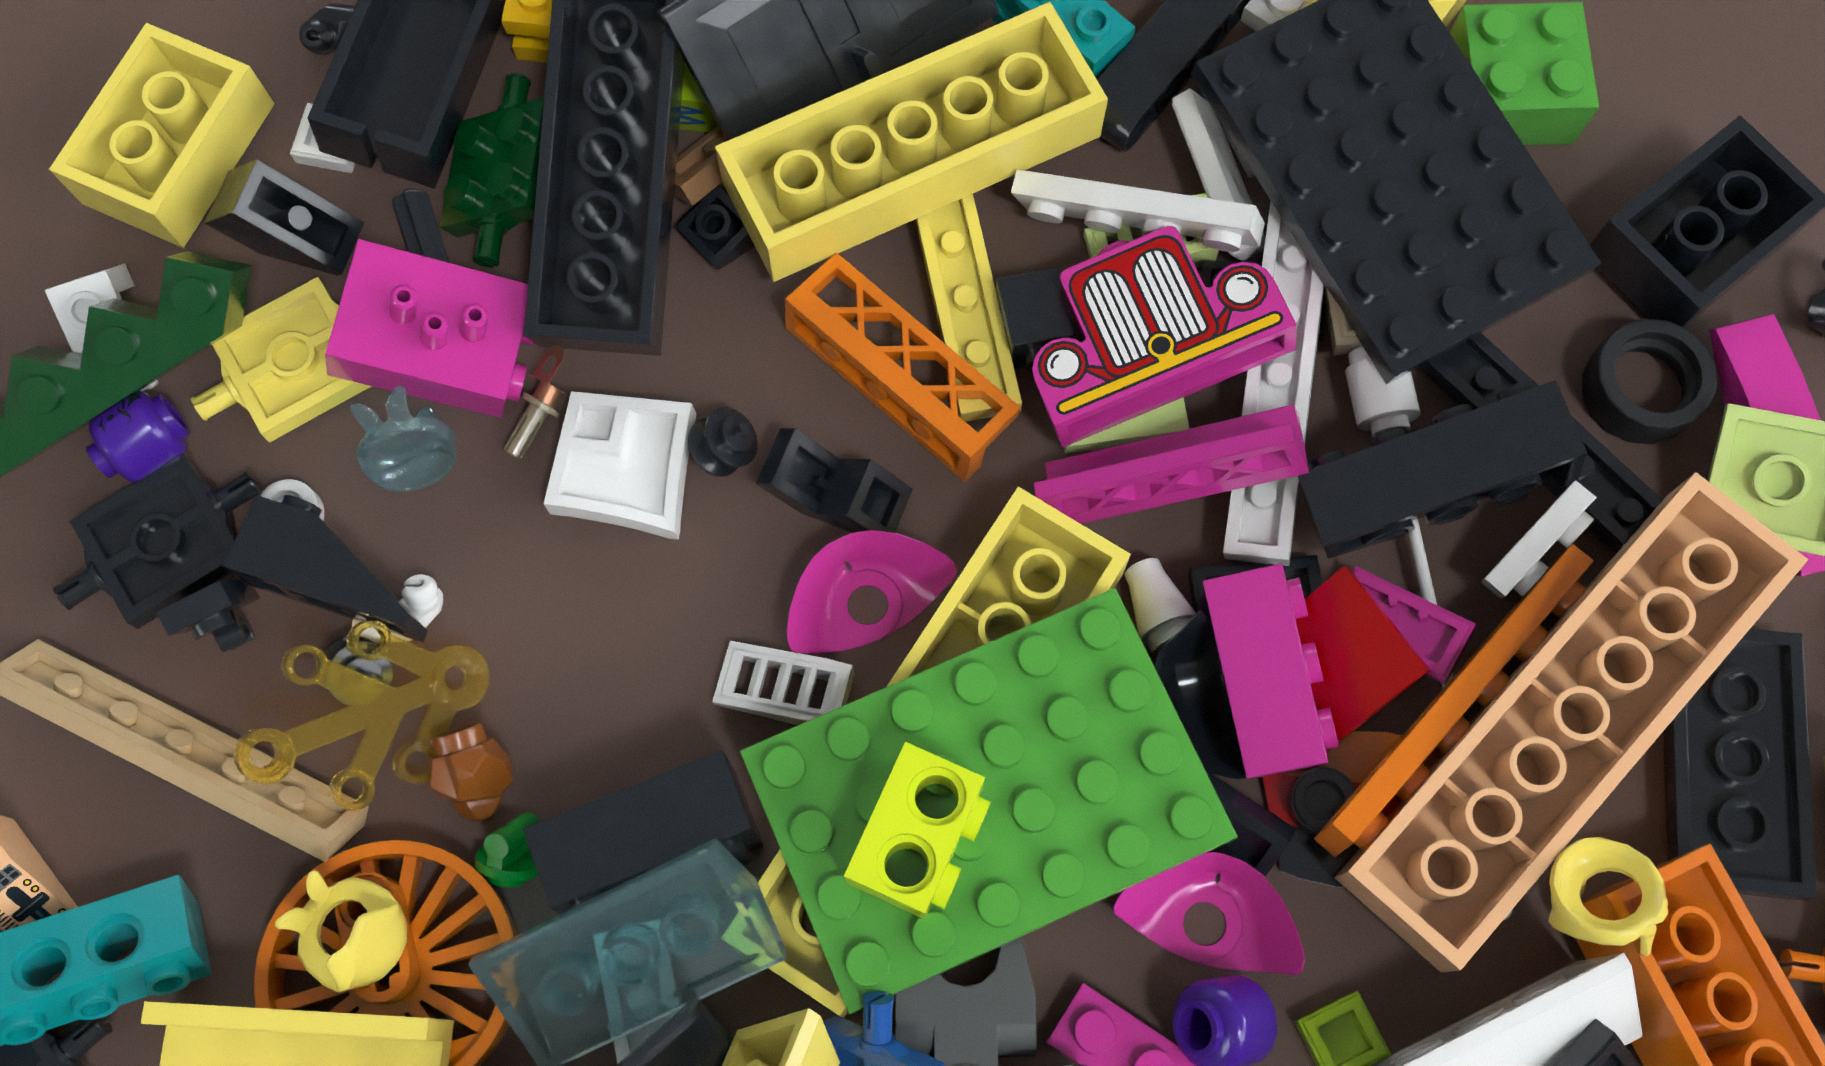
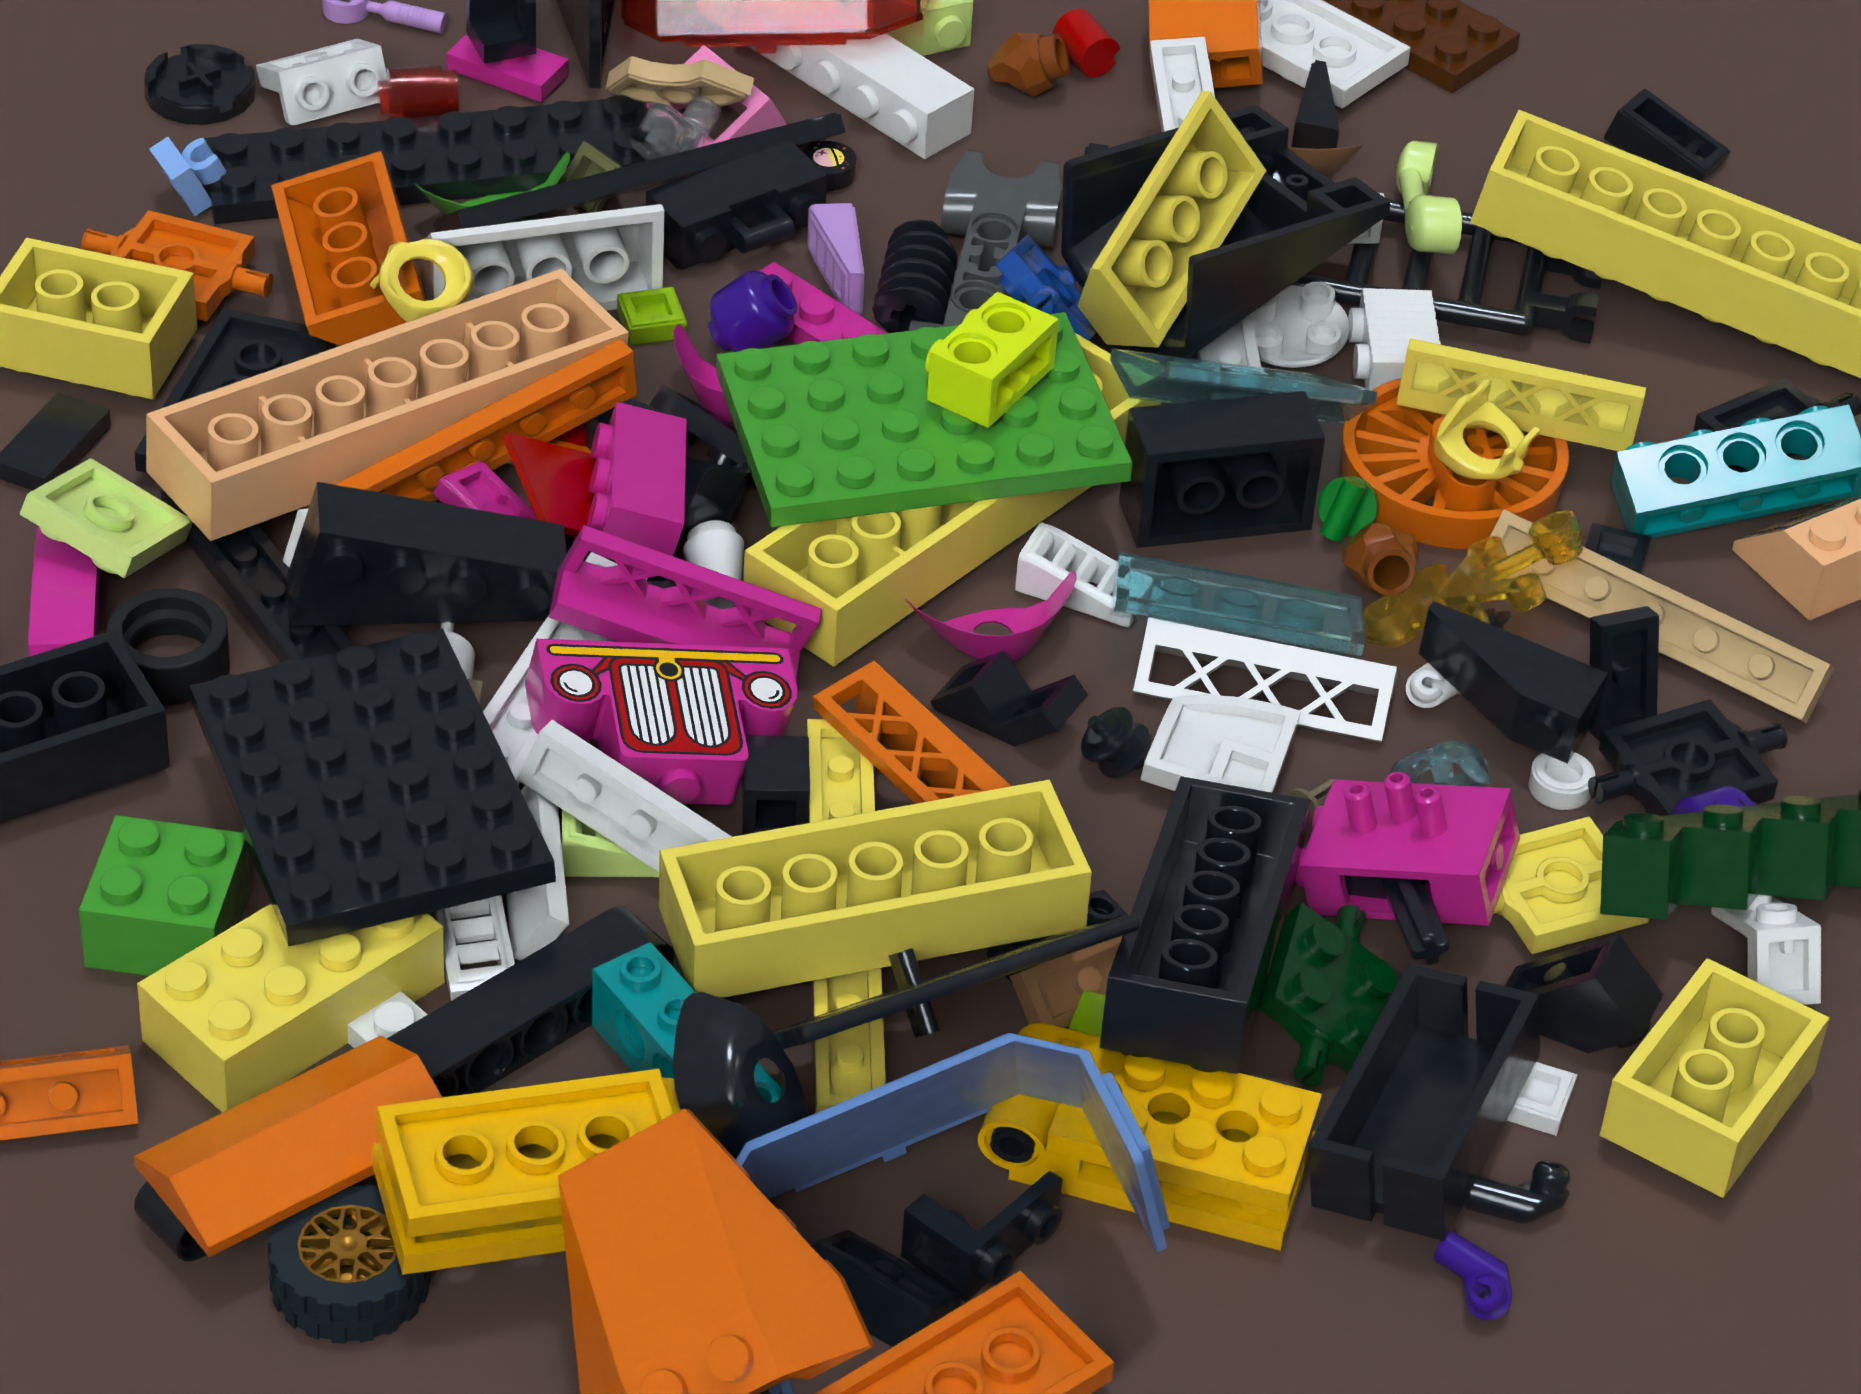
camera: 175 degrees left, 30 degrees down
(218, 861) = (1619, 546): none -> black tile
(580, 584) = (1273, 659): none -> white fence
(617, 646) = (1238, 605): none -> clear light blue slope

